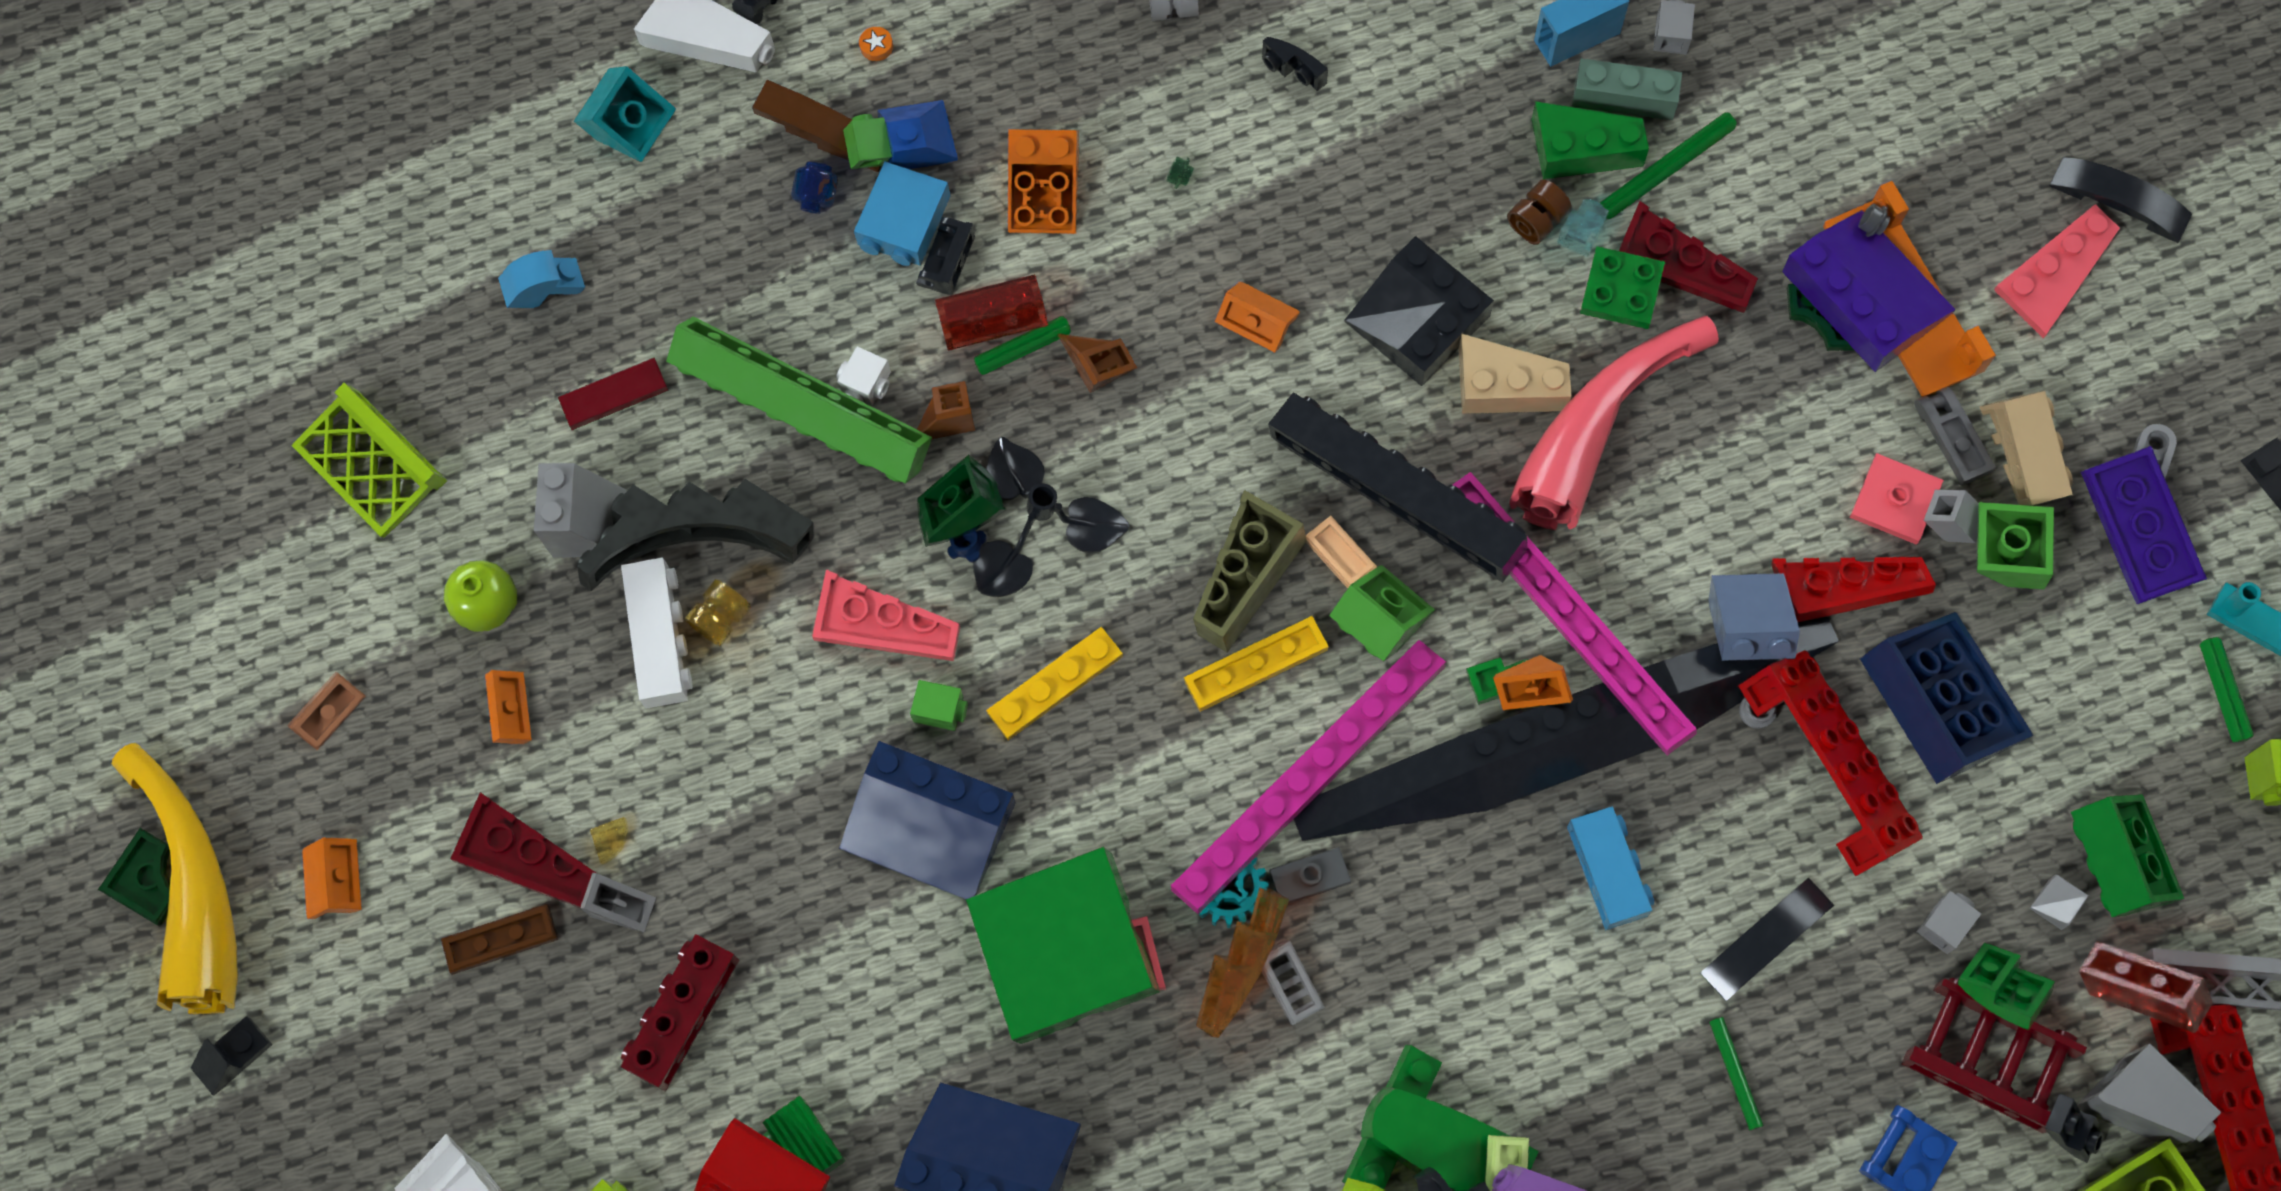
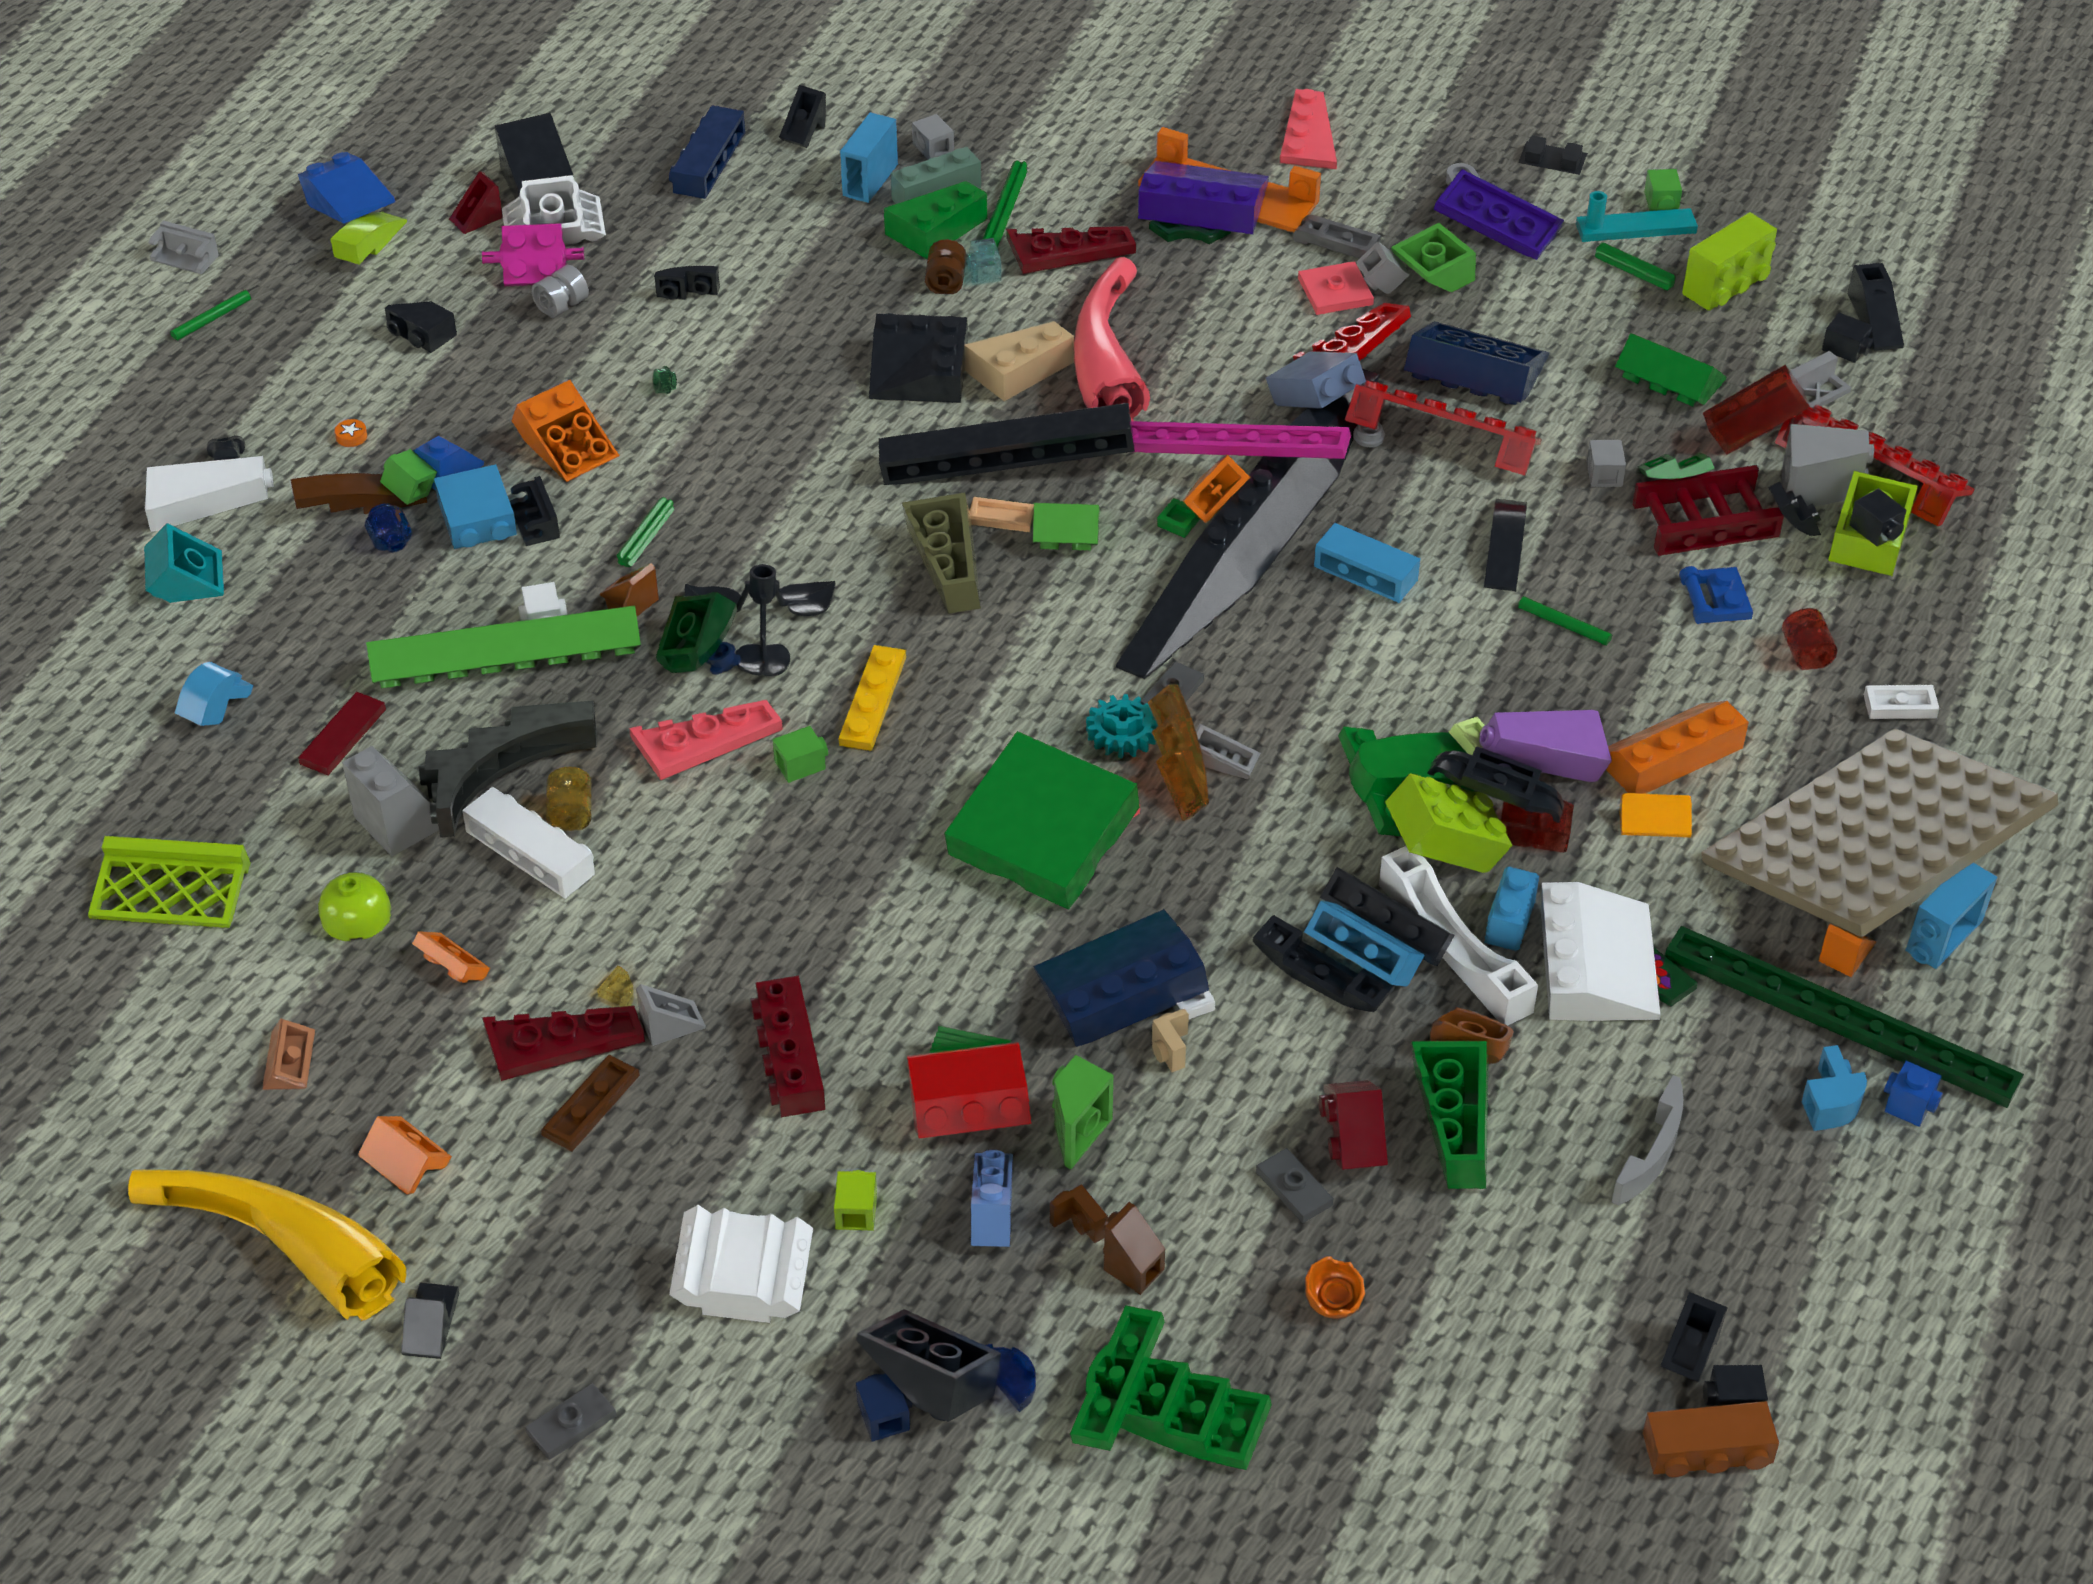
camera: 45 degrees left, 25 degrees down
(141, 877) = (229, 1261): dark green tile -> none
(926, 821) = (861, 820): dark blue slope -> none
(991, 312) = (605, 519): clear red brick -> none
(1098, 359) = (710, 508): dark orange slope -> none
(1256, 316) = (804, 425): orange panel -> none
(1256, 663) = (1007, 601): yellow plate -> none
(1307, 777) = (1113, 632): dark pink plate -> none
(1622, 287) = (1046, 270): green plate -> none
(1874, 220) = (1171, 153): dark grey plate -> none
(2030, 447) = (1385, 209): tan wedge -> none
(2059, 902) = (1658, 416): light grey slope -> none
(2124, 193) = (1305, 73): black slope -> none

